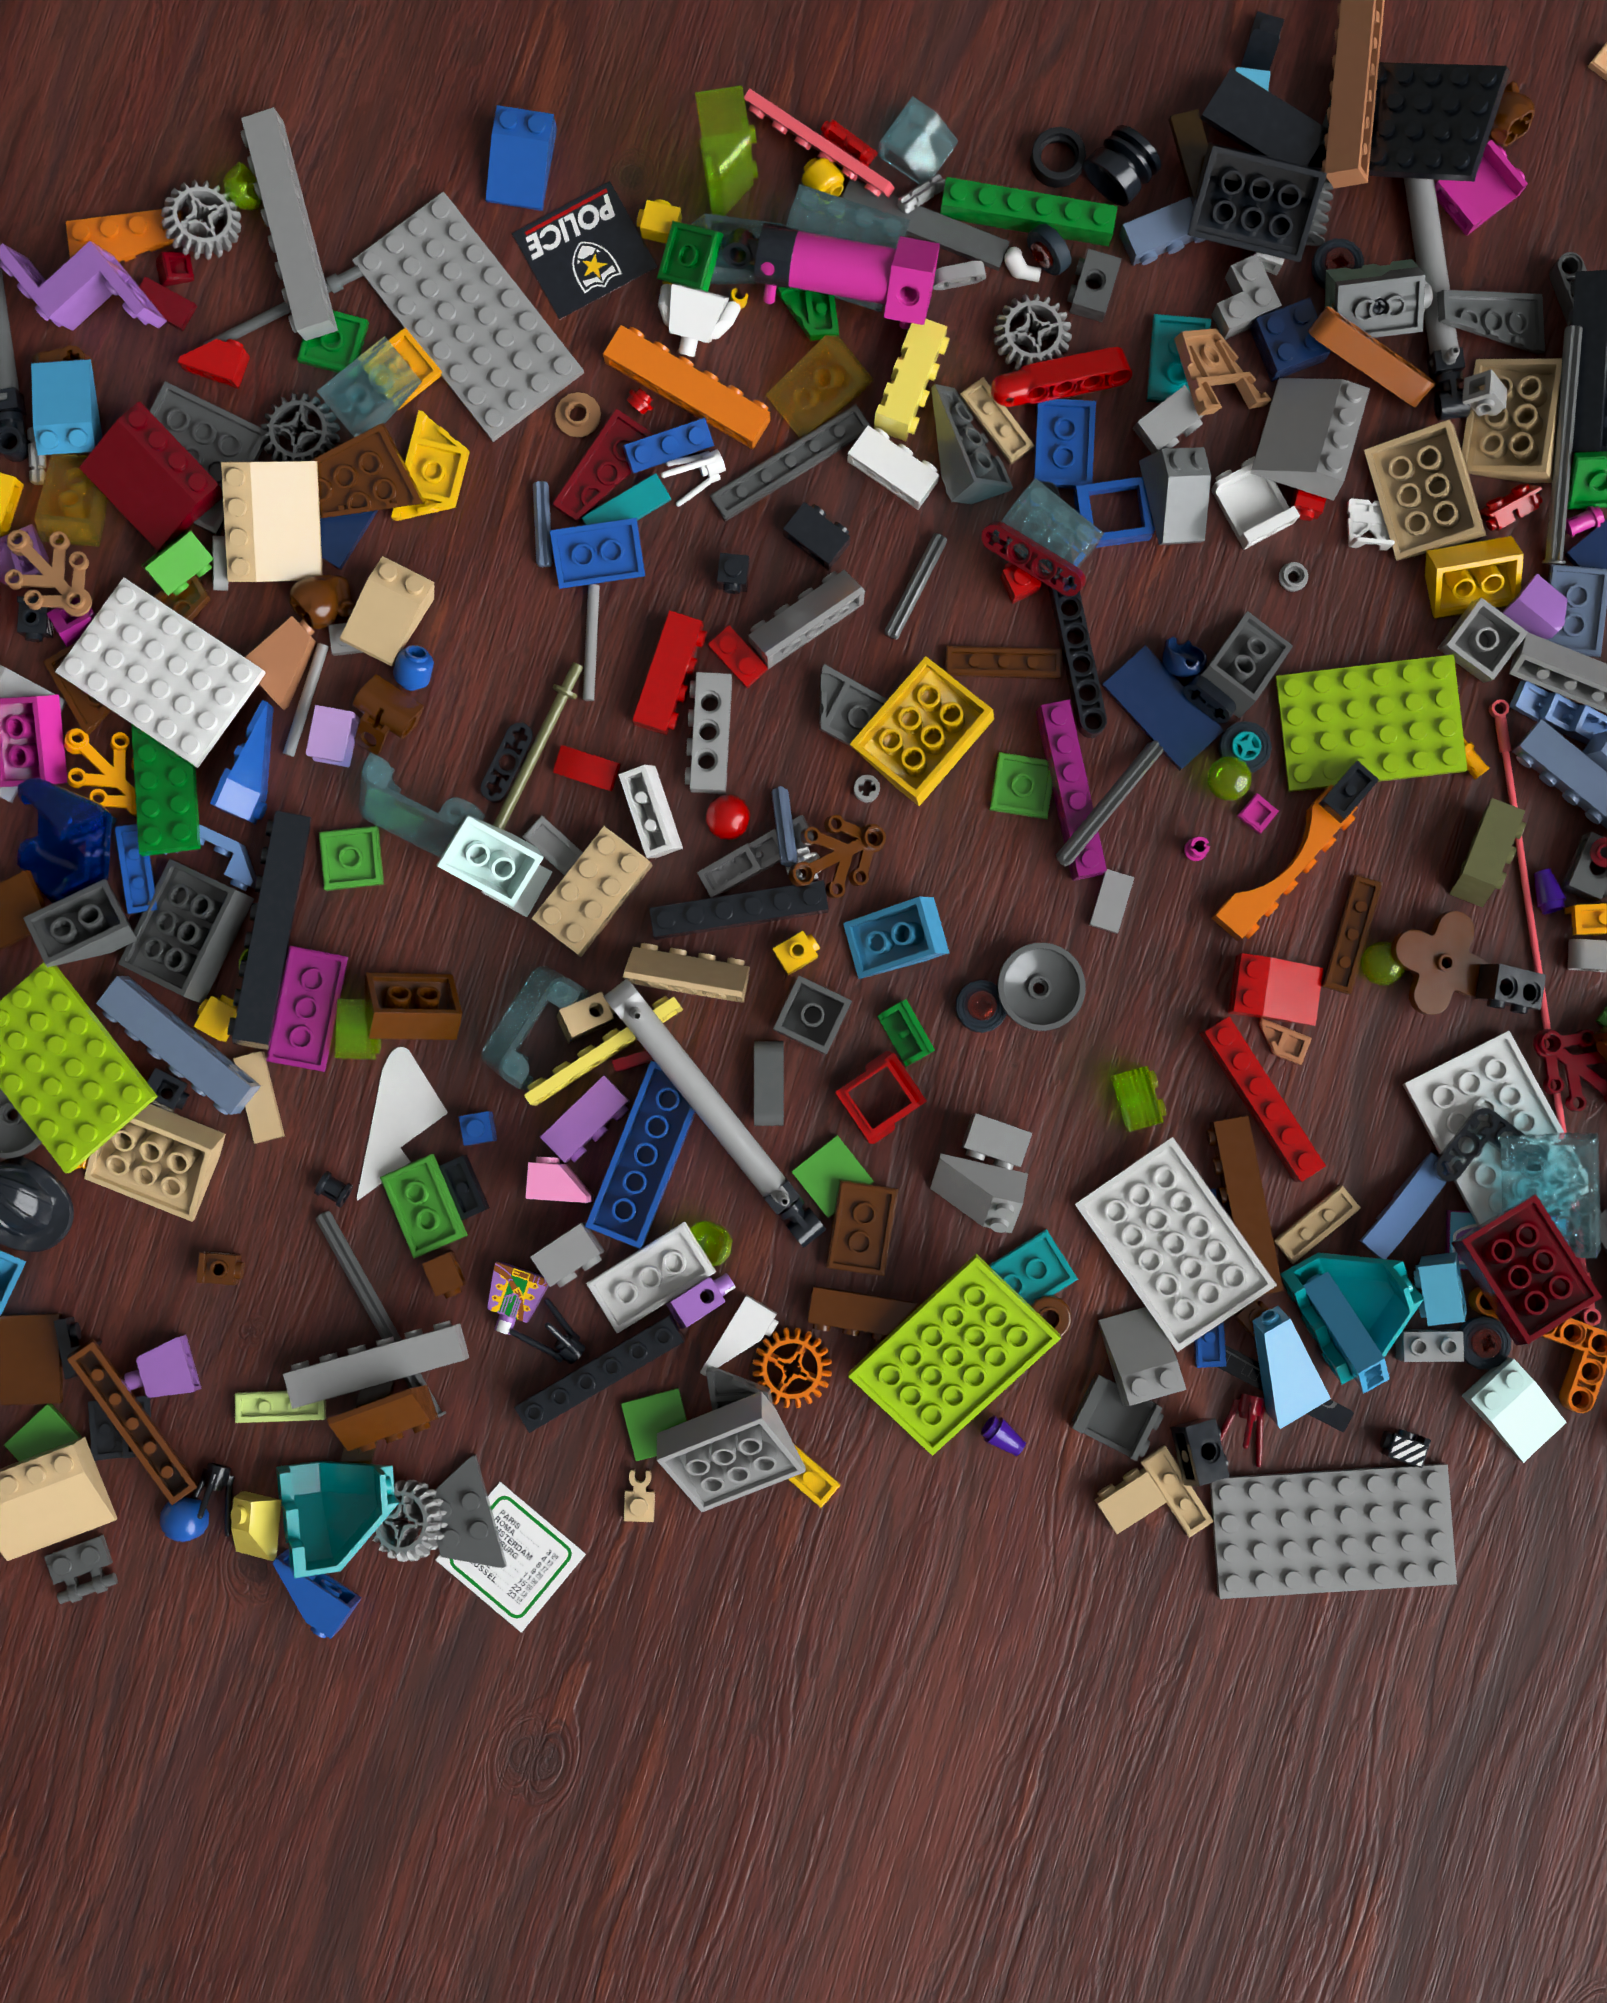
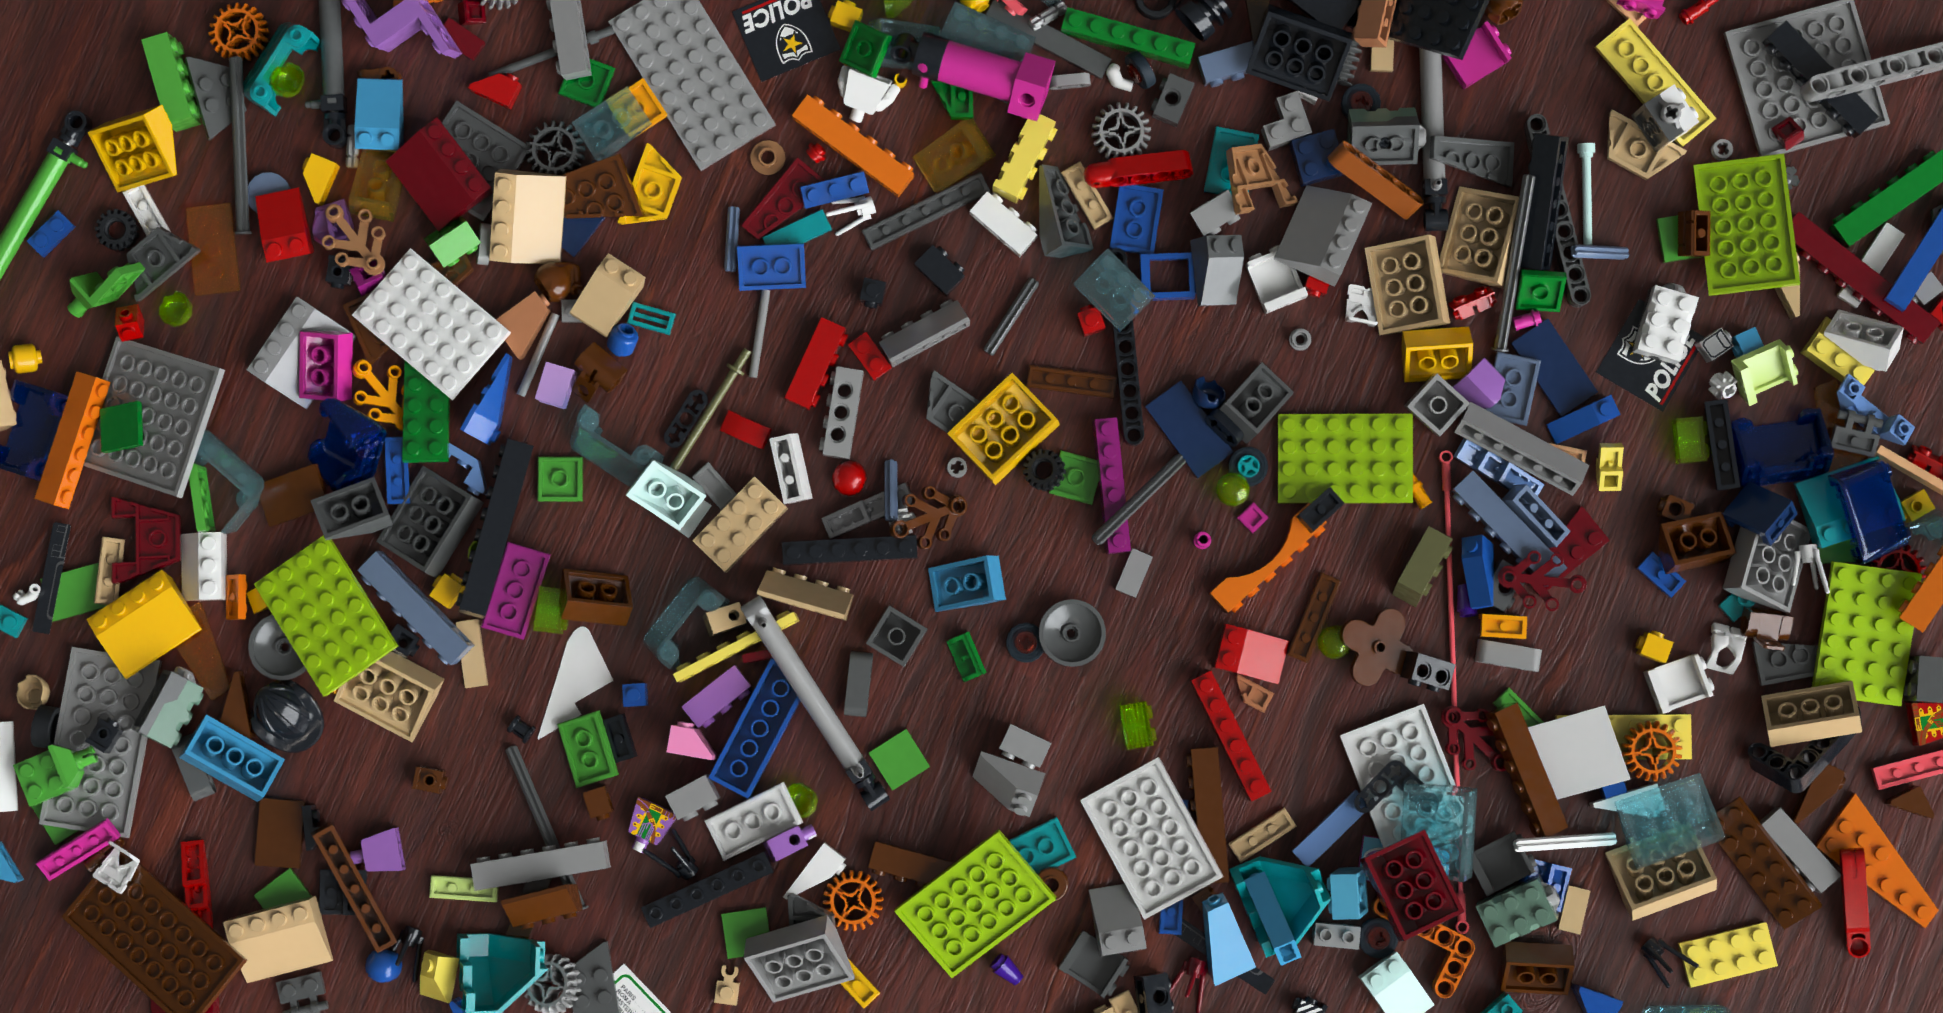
camera: 10 degrees right, 0 degrees up
(473, 642) = (669, 324): none -> teal tile
(796, 952) = (890, 586): yellow brick -> none
(861, 1227) = (917, 800): reddish brown tile -> none
(905, 1081) = (951, 676): red piece -> none
(993, 791) = (1031, 470): none -> black tyre
(1031, 562) = (1101, 305): dark red beam -> none
(1358, 203) = (1382, 58): none -> tan tile
(1487, 401) = (1459, 221): light grey brick -> none
(1562, 849) = (1478, 570): none -> blue slope

